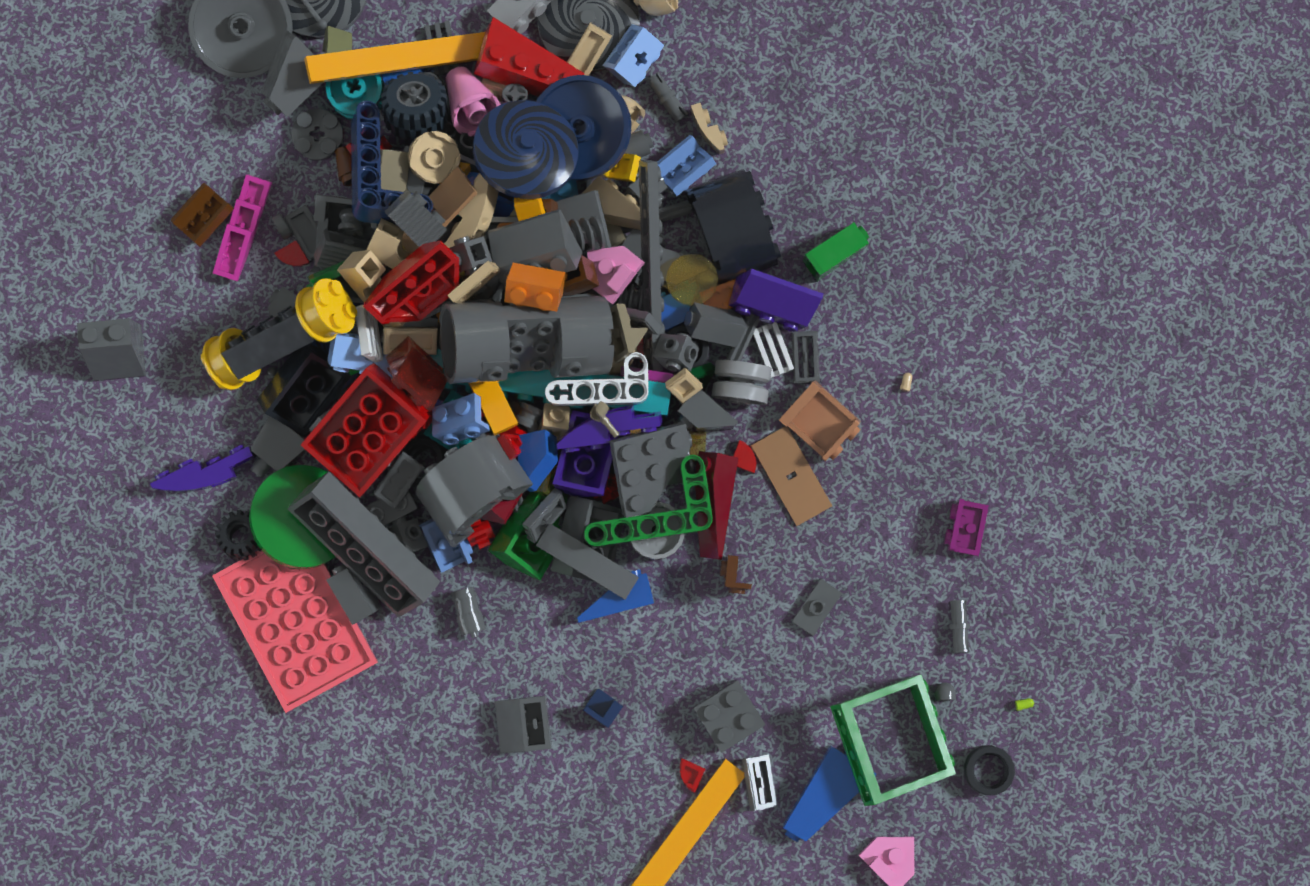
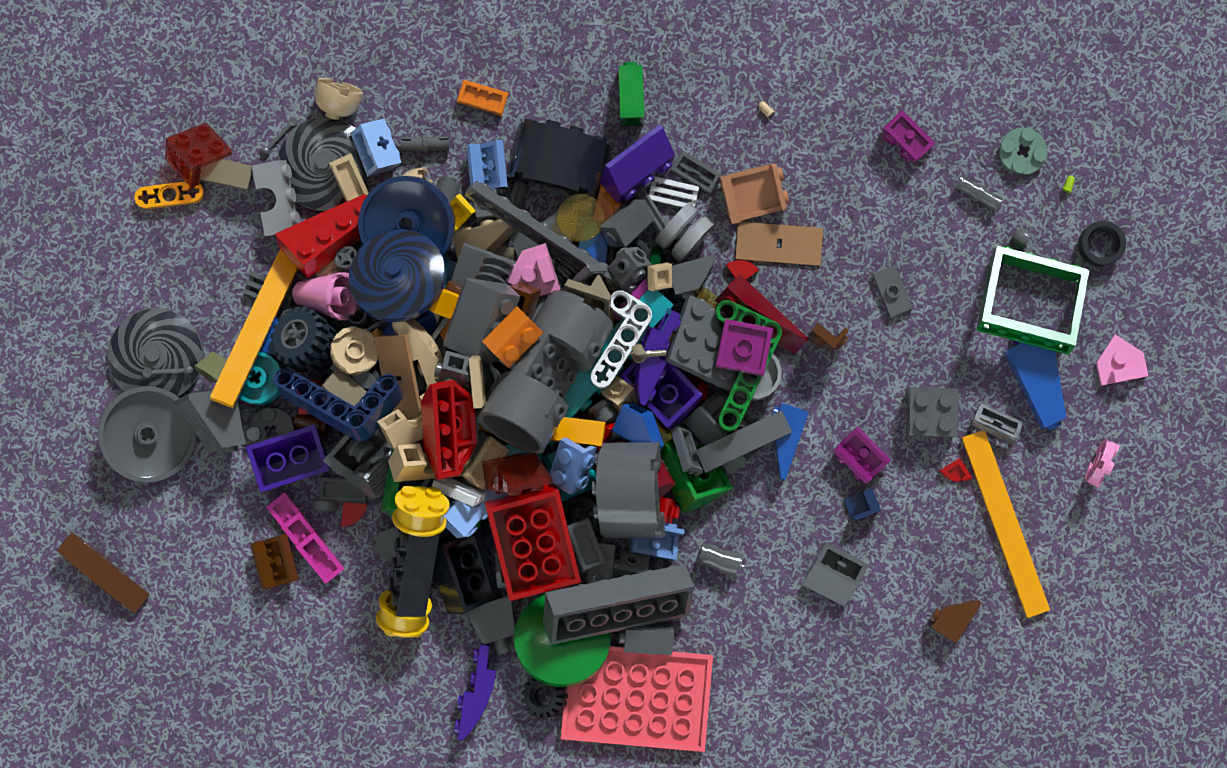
camera: 60 degrees left, 0 degrees up
(92, 70) = (102, 572): none -> reddish brown slope
(112, 348) = (333, 700): dark grey slope -> none
(301, 163) = (288, 458): none -> dark purple slope
(415, 219) = (398, 394): dark grey brick -> none
(510, 444) = (617, 439): red tile -> none
(555, 859) = (953, 618): none -> reddish brown slope
(647, 677) = (861, 455): none -> magenta bracket
(669, 503) = (744, 347): none -> magenta tile
(712, 135) = (479, 128): tan slope -> none
(743, 120) = (482, 97): none -> orange plate
(1011, 646) = (1027, 138): none -> sand green plate

